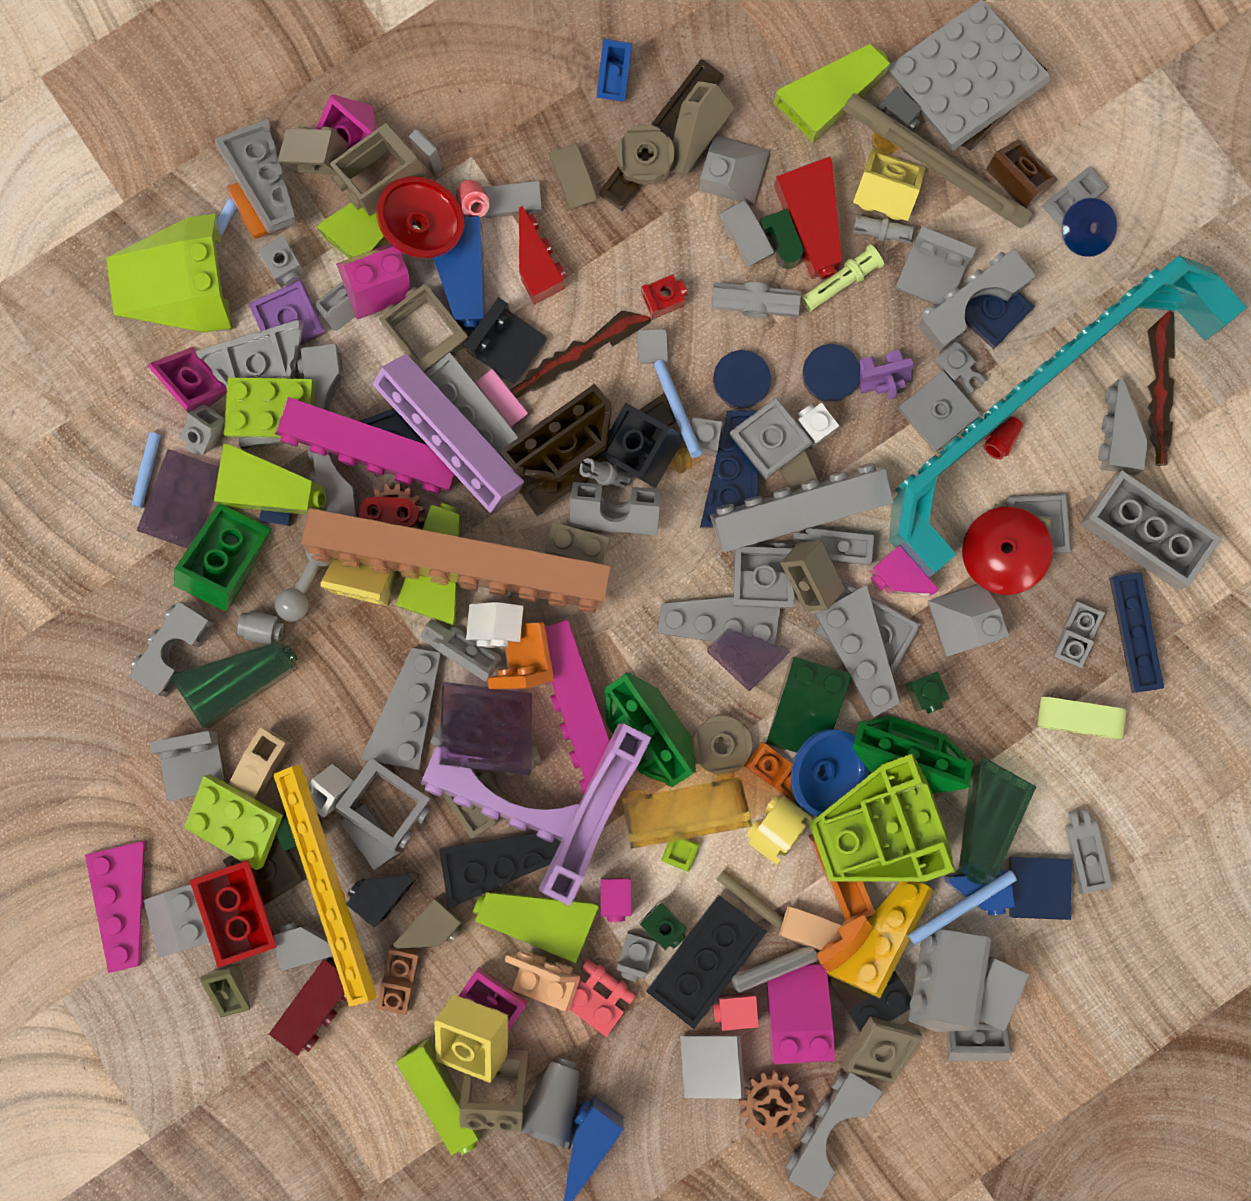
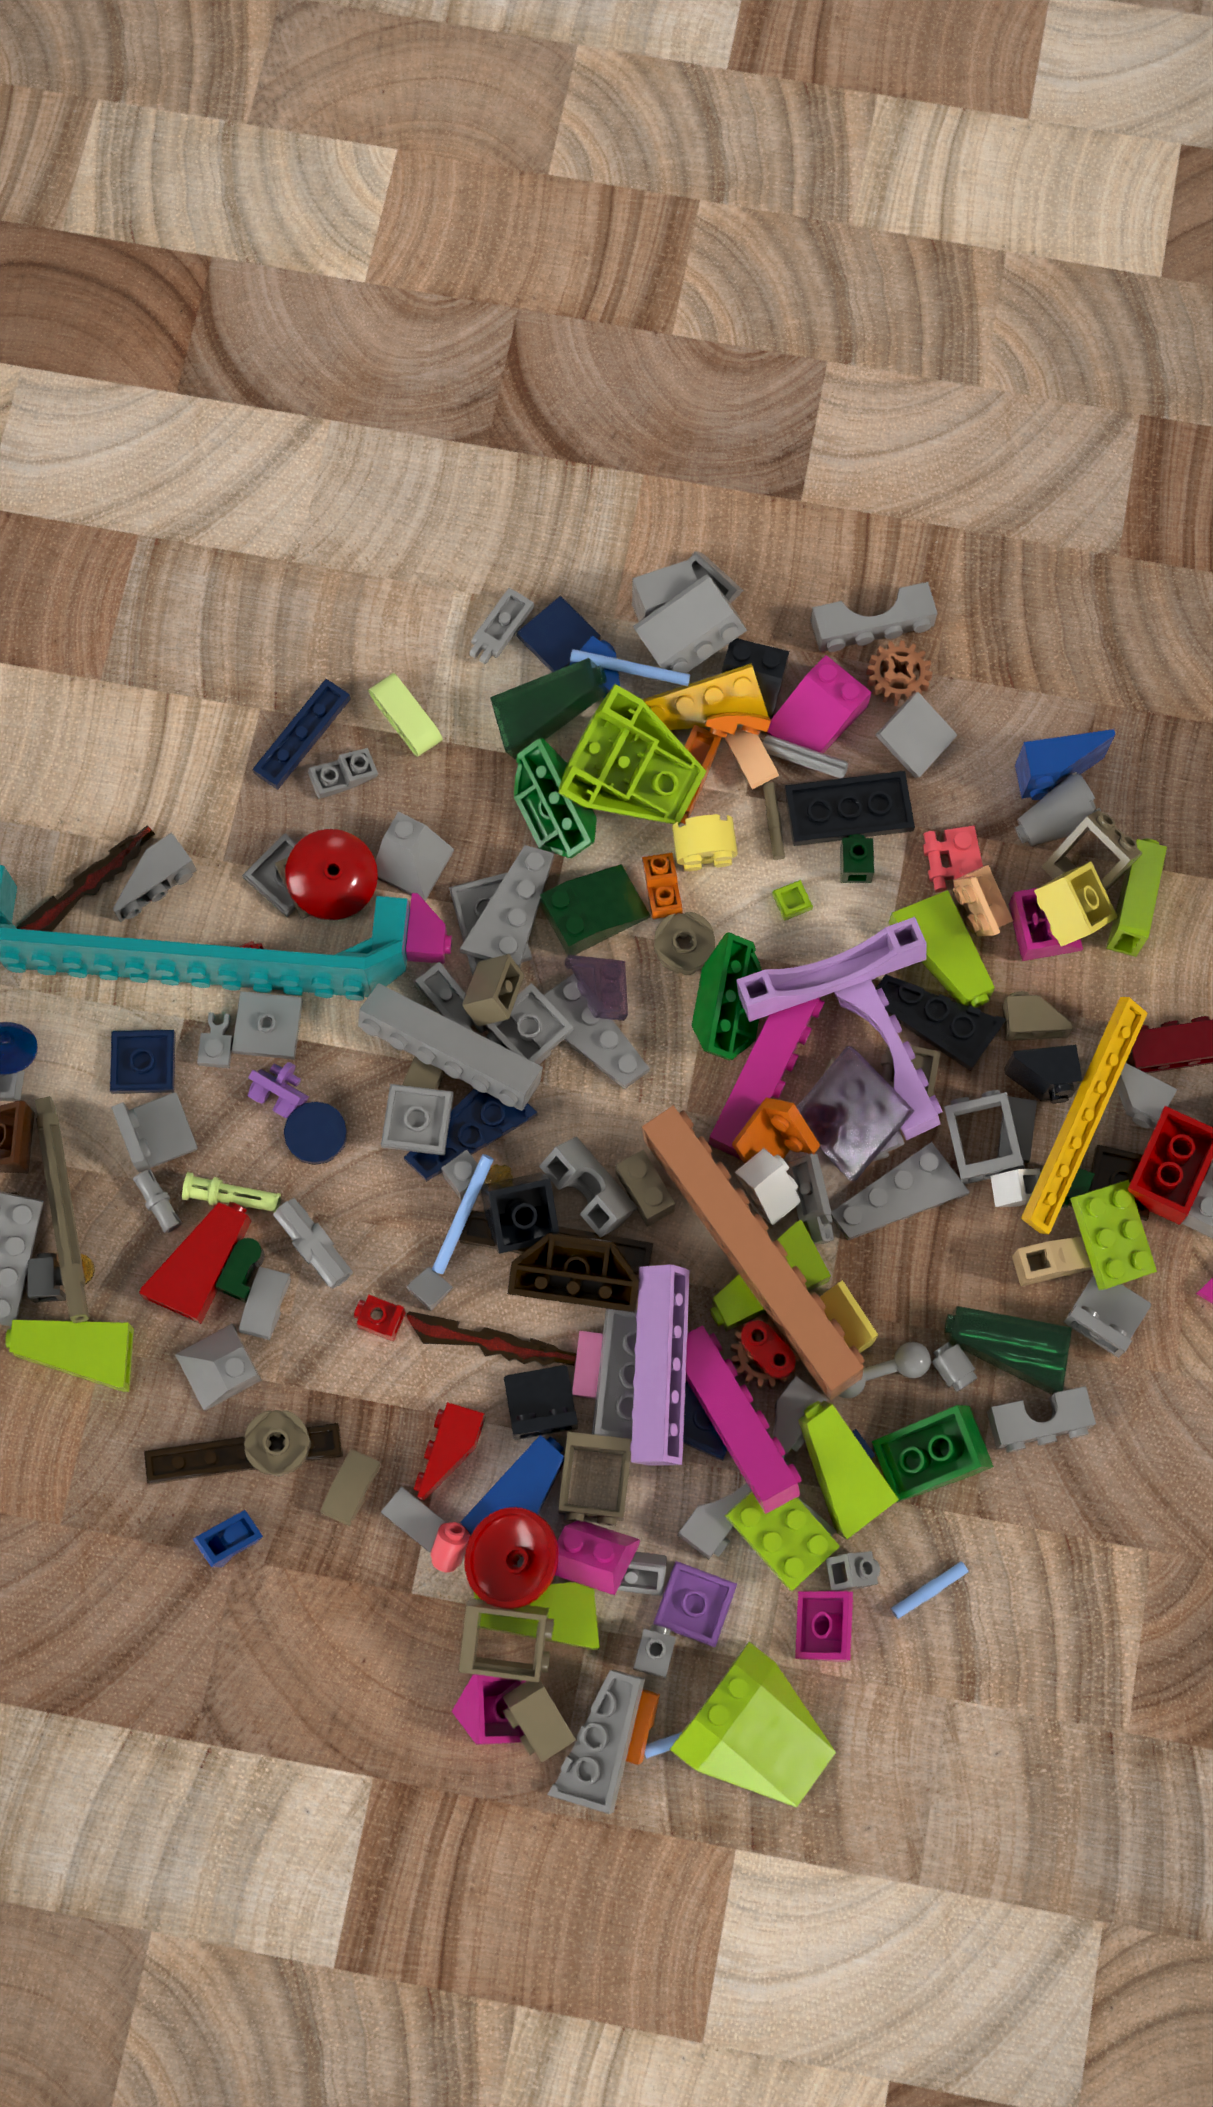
camera: 135 degrees left, 10 degrees down
(179, 499) = (923, 1536): clear purple plate -> none
(257, 355) = (753, 1590): light grey wing -> none
(398, 980) = (1092, 1007): nougat slope -> none
(426, 152) = (448, 1620): light grey tile -> none
(604, 473) = (571, 1220): light grey pin -> none
(615, 898) = (872, 910): dark pink brick -> none
(635, 957) = (899, 859): light grey bracket -> none
(686, 811) = (765, 906): clear yellow windscreen -> none
(698, 122) = (210, 1426): dark tan slope -> none
(736, 1011) = (862, 753): coral brick -> none
(741, 379) = (387, 1195): dark blue tile -> none
(817, 423) = (370, 1101): white brick -> none
(838, 772) = (628, 846): blue dish -> none
(881, 1050) = (785, 633): dark tan tile -> none
(889, 185) = (115, 1229): light yellow slope -> none
(927, 693) = (496, 834): dark green brick -> none
(1003, 279) = (191, 1079): light grey arch -> none
(1150, 531) = (214, 789): light grey brick -> none

